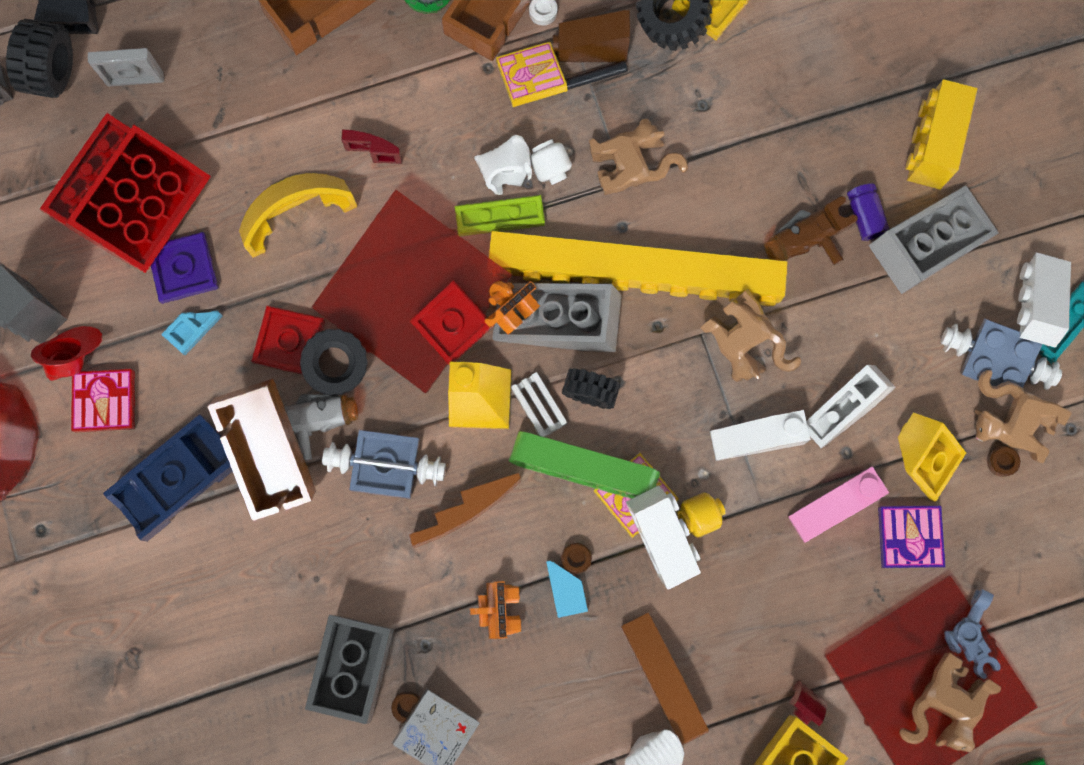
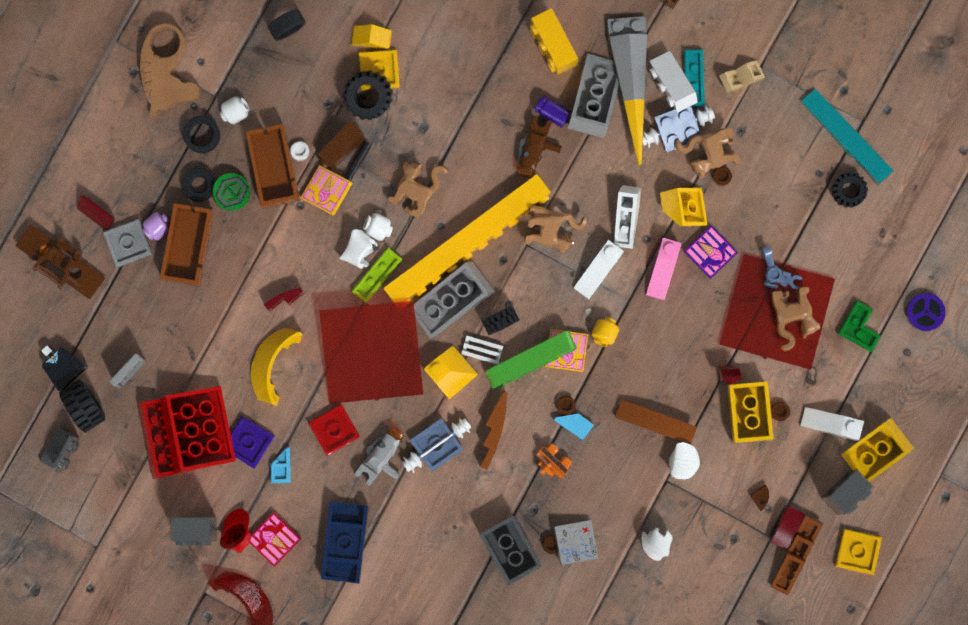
camera: 40 degrees left, 5 degrees up
(262, 449) = (376, 489): piece -> none
(333, 339) = (367, 434): black tyre -> none
(451, 323) = (406, 349): red tile -> none
(505, 315) = (425, 315): orange hips -> none
(664, 536) = (597, 358): white brick -> none
(1018, 223) = (628, 48): none -> light grey plate

